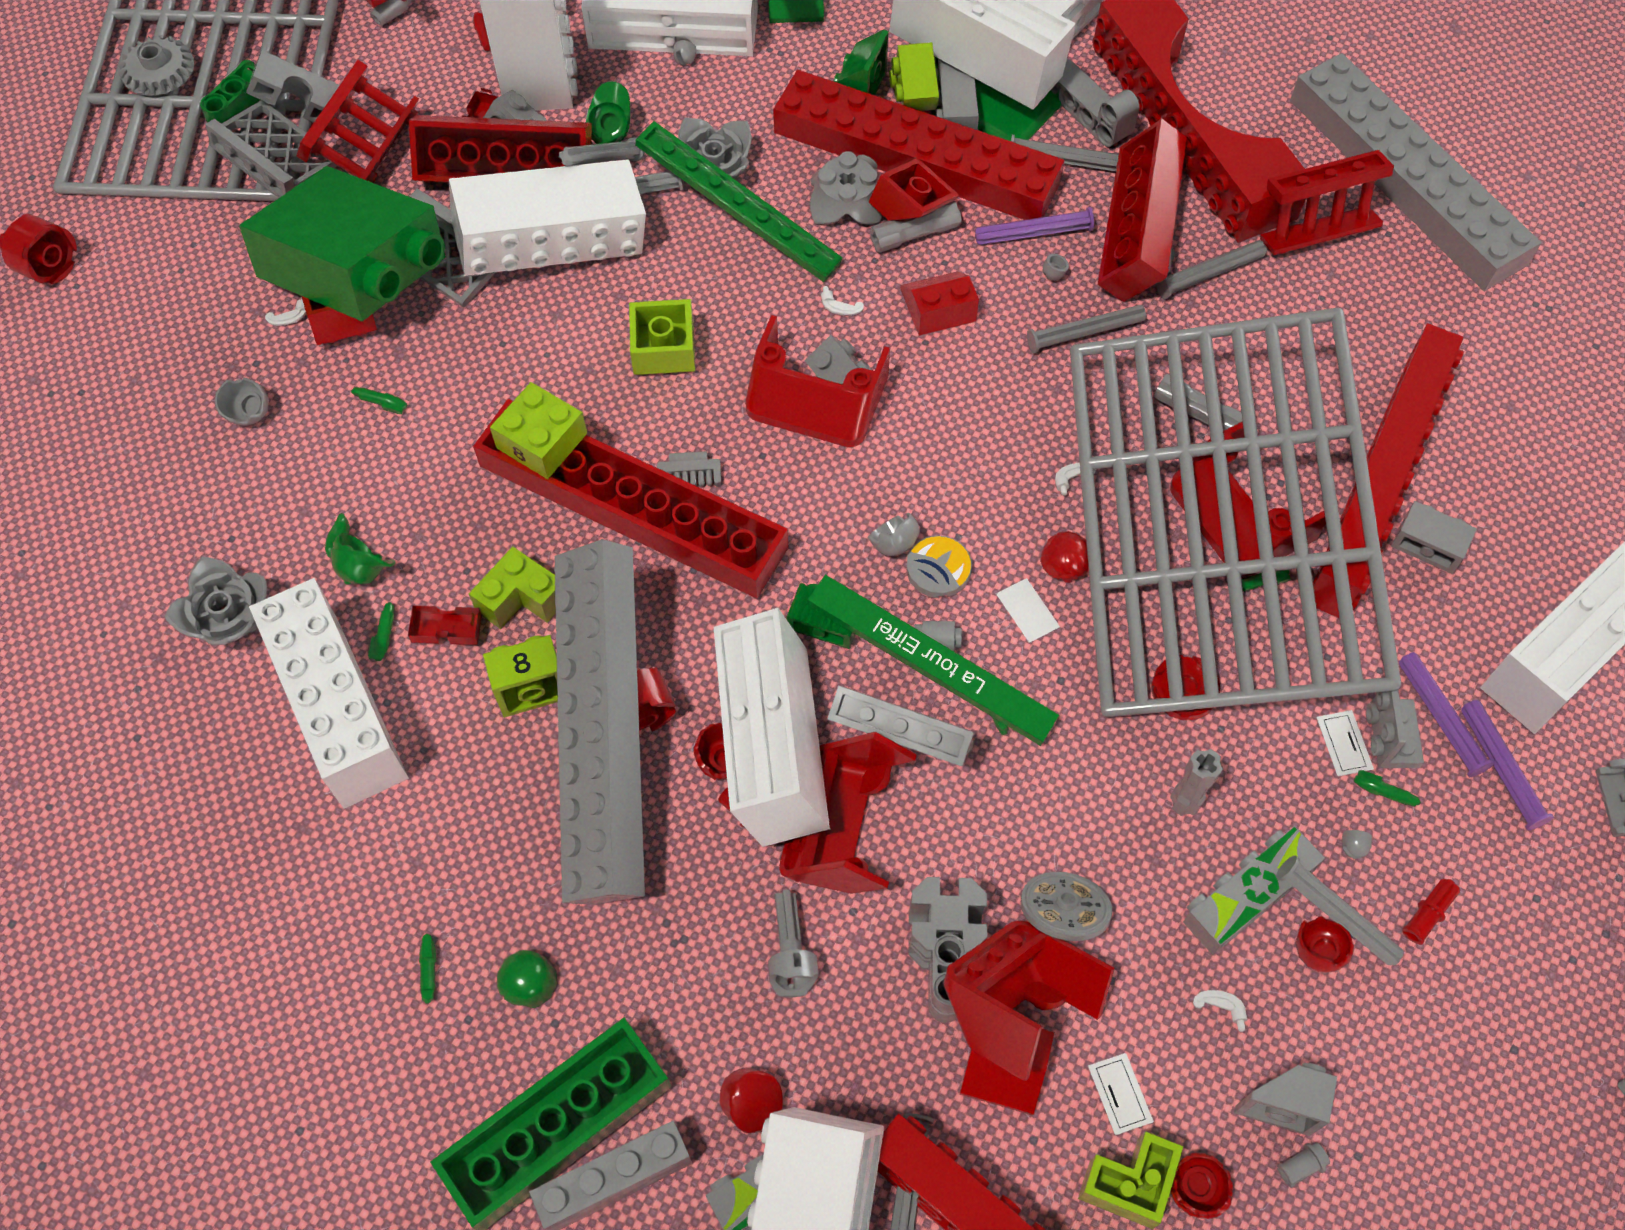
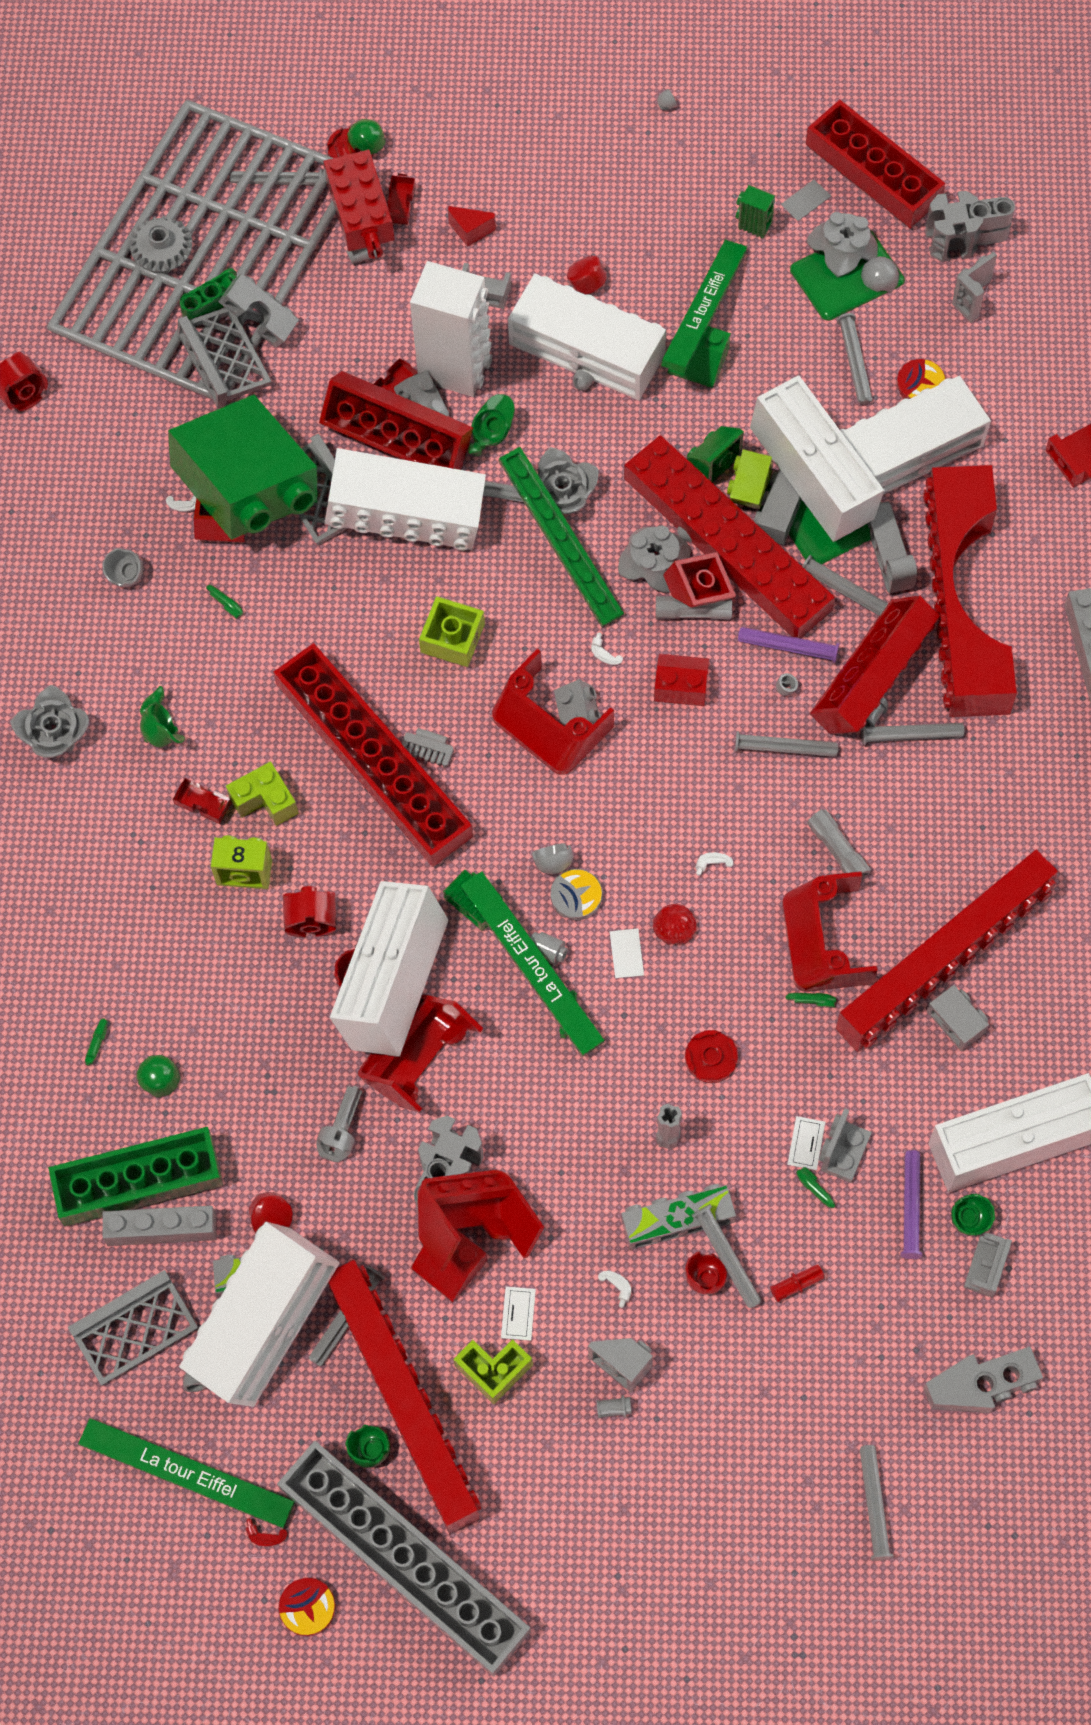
camera: 25 degrees right, 5 degrees up
(328, 694) = (101, 822): white brick -> none
(343, 102) = (273, 352): red fence -> none
(381, 641) = (154, 794): green piece -> none
(539, 430) = (323, 680): lime brick -> none
(598, 725) = (273, 918): light grey brick -> none
(601, 153) = (468, 457): light grey axle -> none
(901, 725) = (483, 1004): light grey fence -> none
(1066, 906) = (540, 1174): light grey shield -> none
(1202, 1186) = (537, 1390): red hair -> none
(1232, 567) = (780, 982): light grey bar -> none
(1319, 180) = (1023, 698): red fence -> none
(1356, 843) = (770, 1216): light grey hinge -> none
(1445, 715) = (888, 1152): medium lavender axle -> none
(1583, 745) = (972, 1214): none -> green hair

